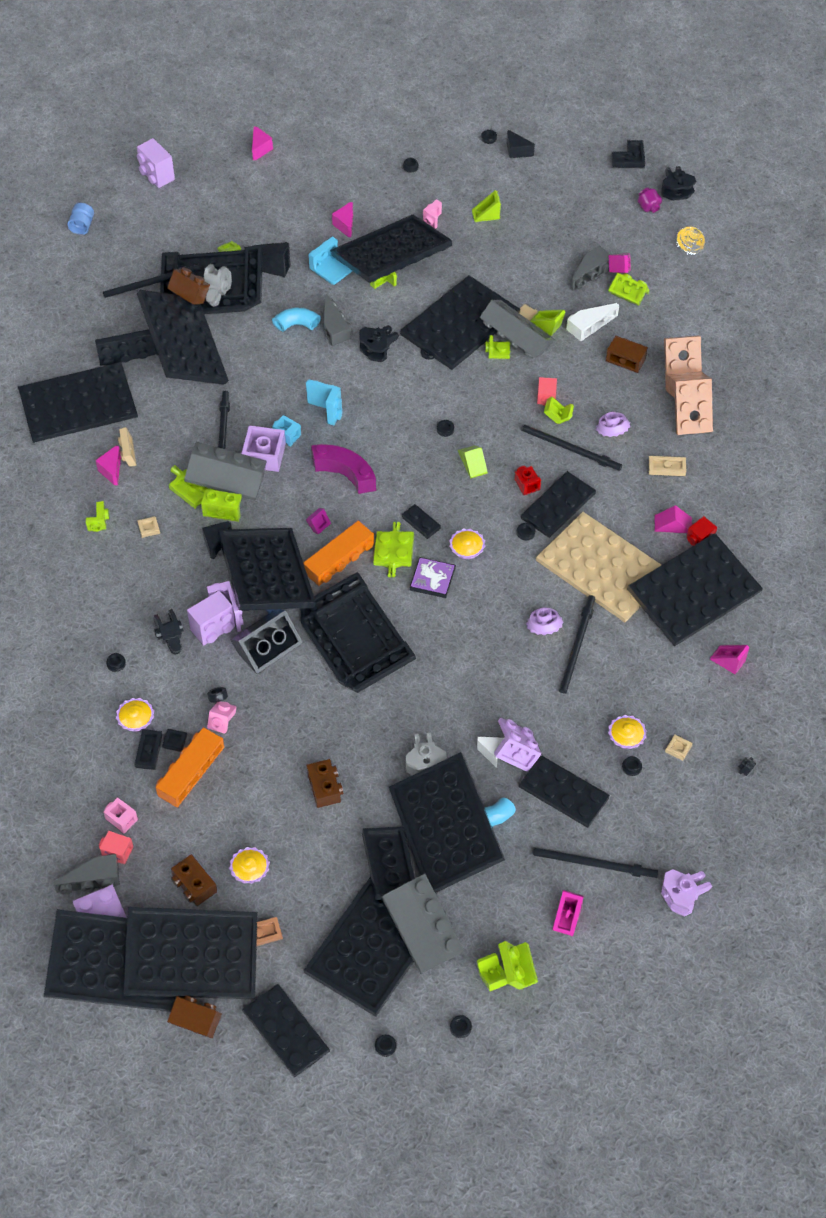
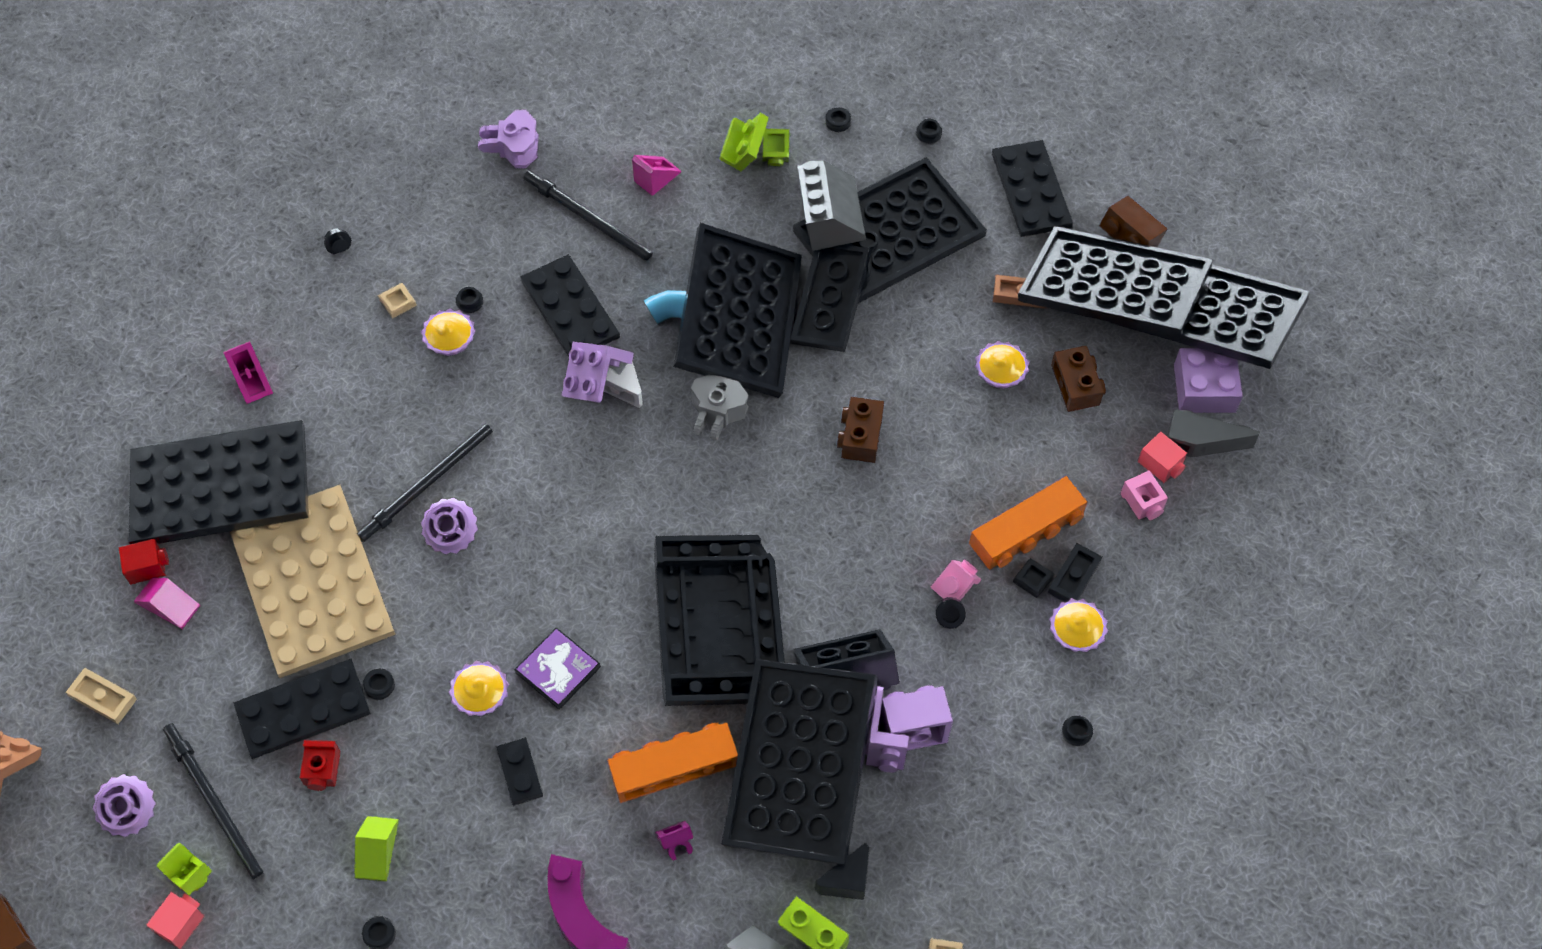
camera: 155 degrees left, 5 degrees up
(169, 632) = (984, 732): black hinge -> none
(394, 549) = (586, 740): lime plate -> none

